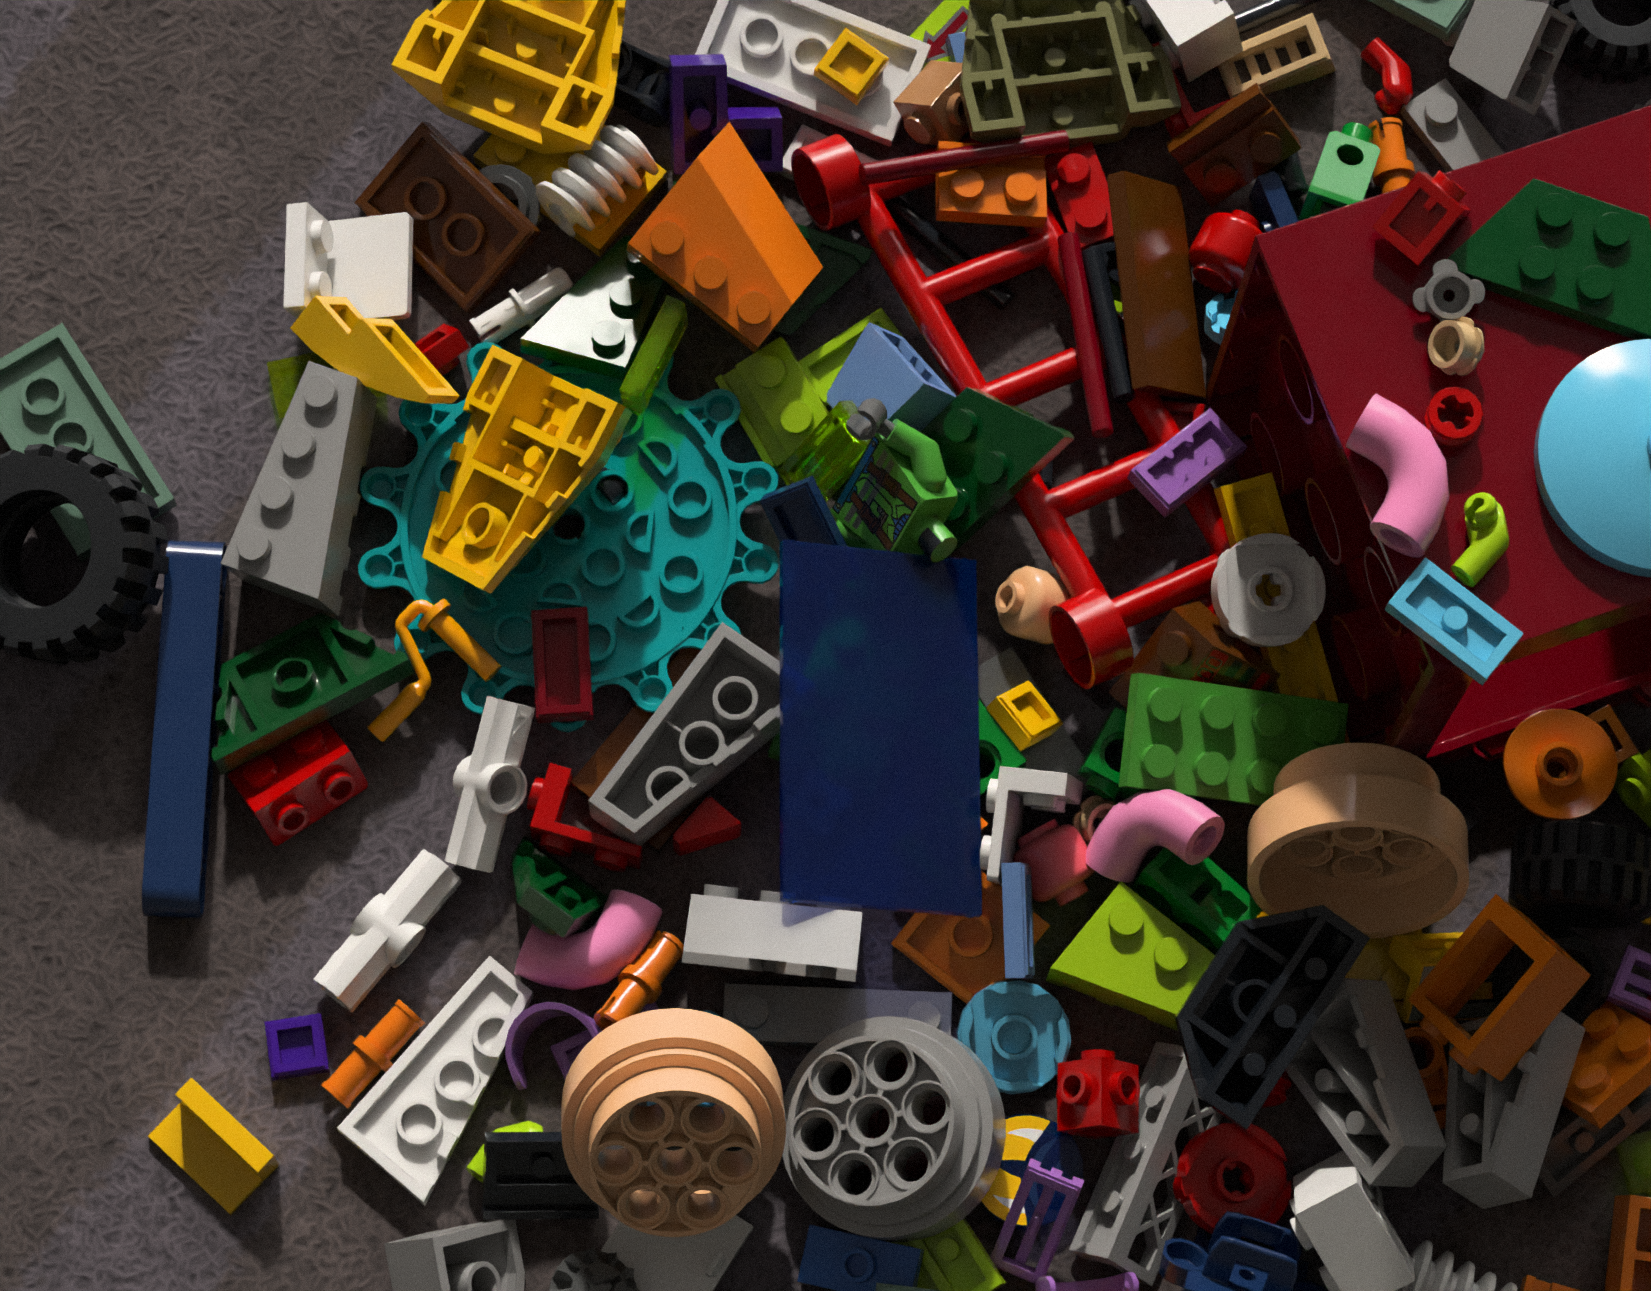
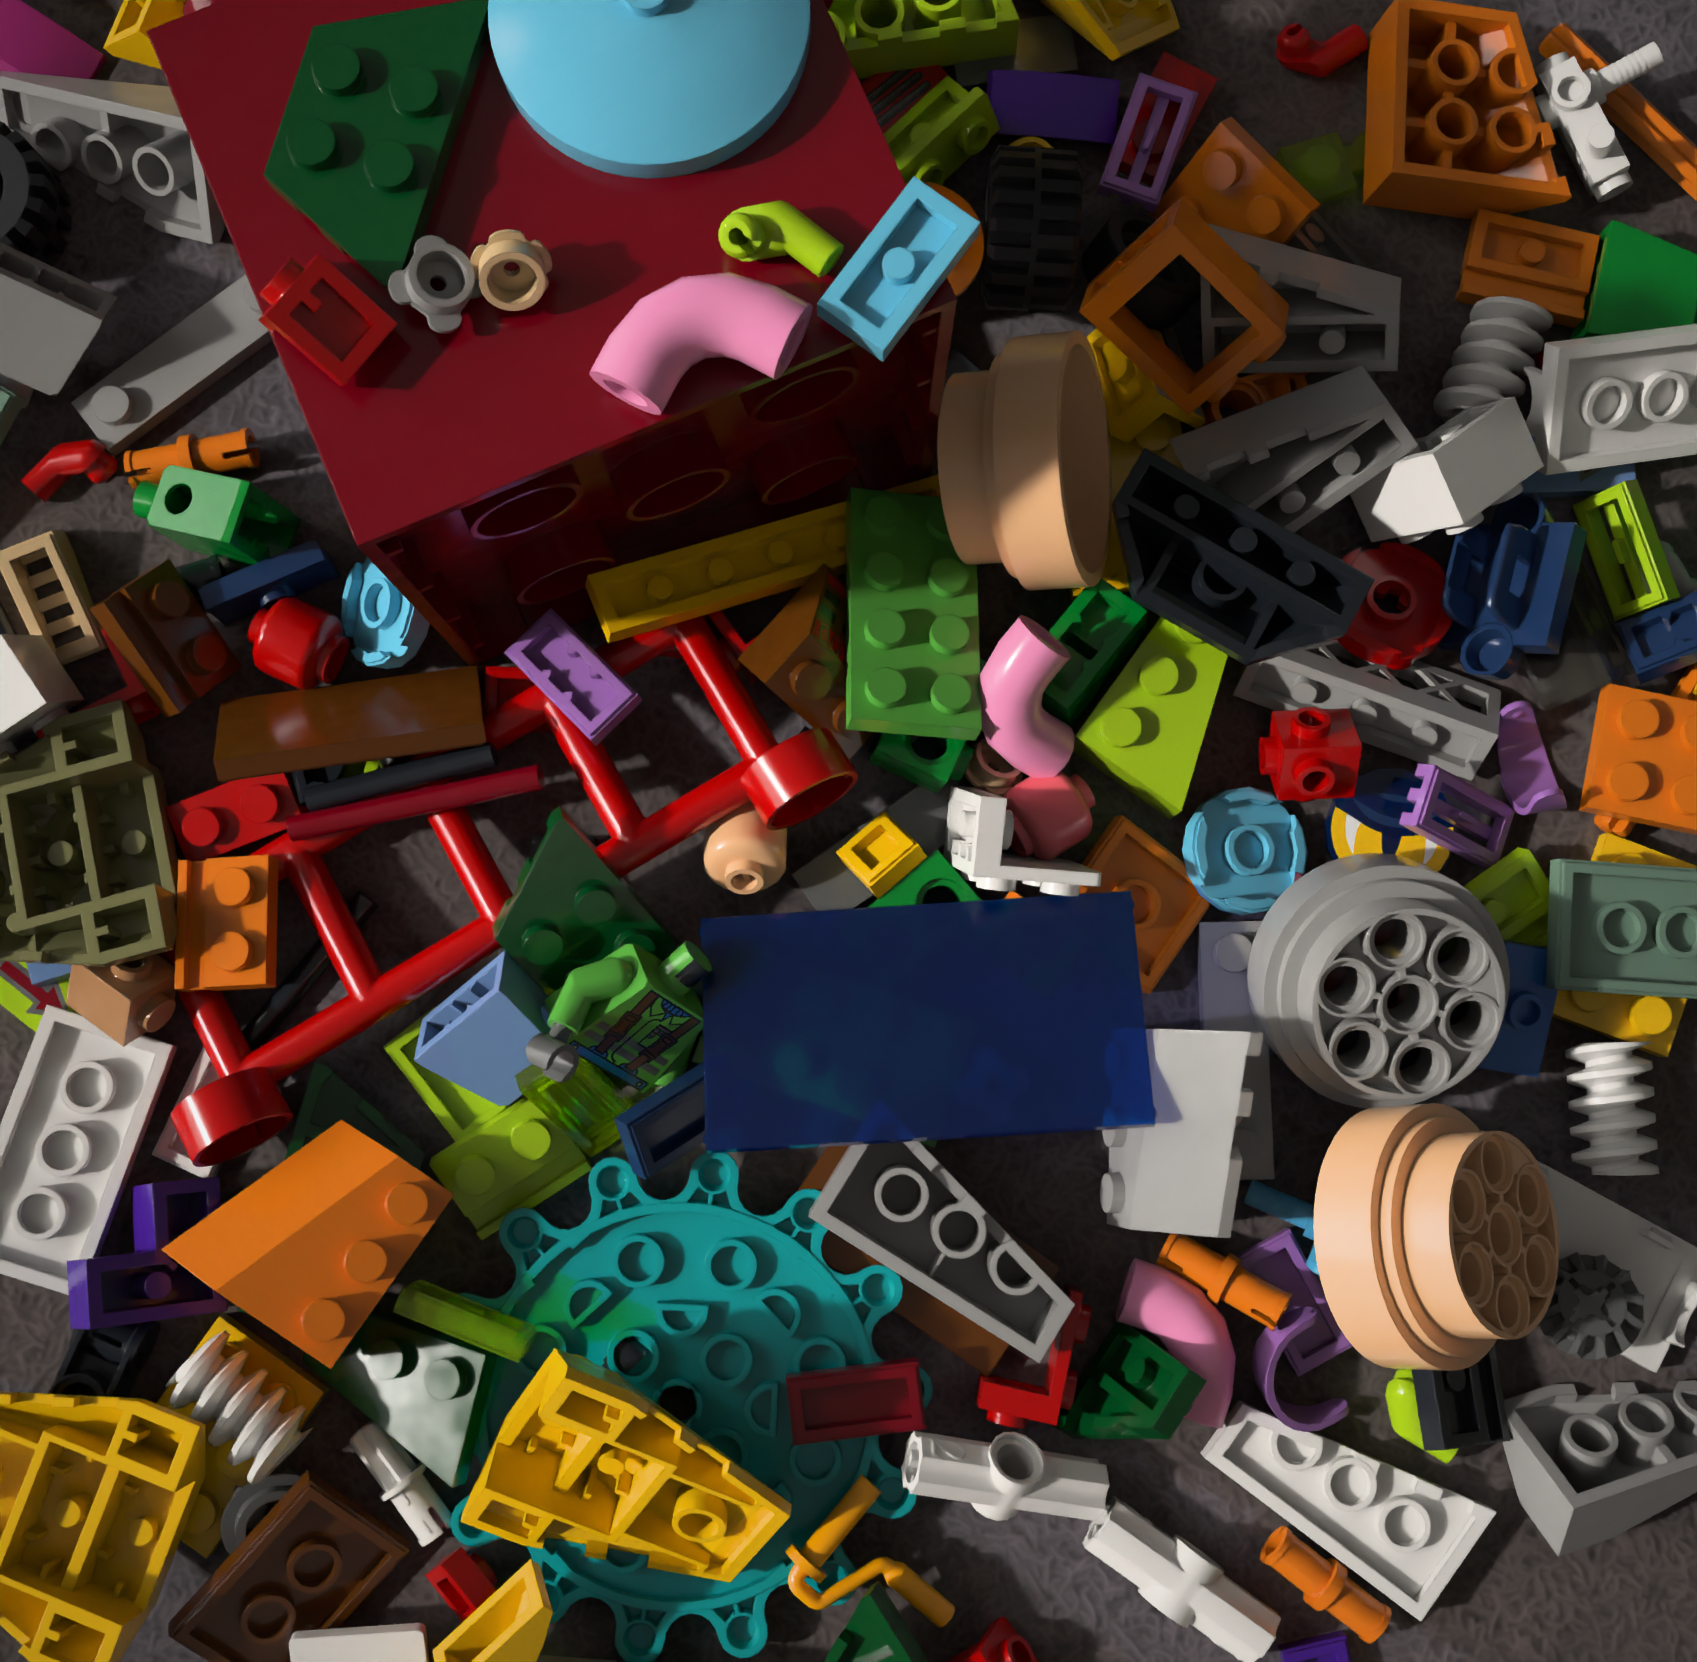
camera: 90 degrees left, 10 degrees up
(706, 827) = (1031, 1214): red slope -> none
(851, 66) = (77, 1100): yellow tile -> none
(963, 157) = (197, 959): dark red bar -> none
(1018, 920) = (1132, 850): medium blue tile -> none
(1244, 613) = (725, 611): white plate -> none
(1460, 401) = (584, 273): red bush -> none

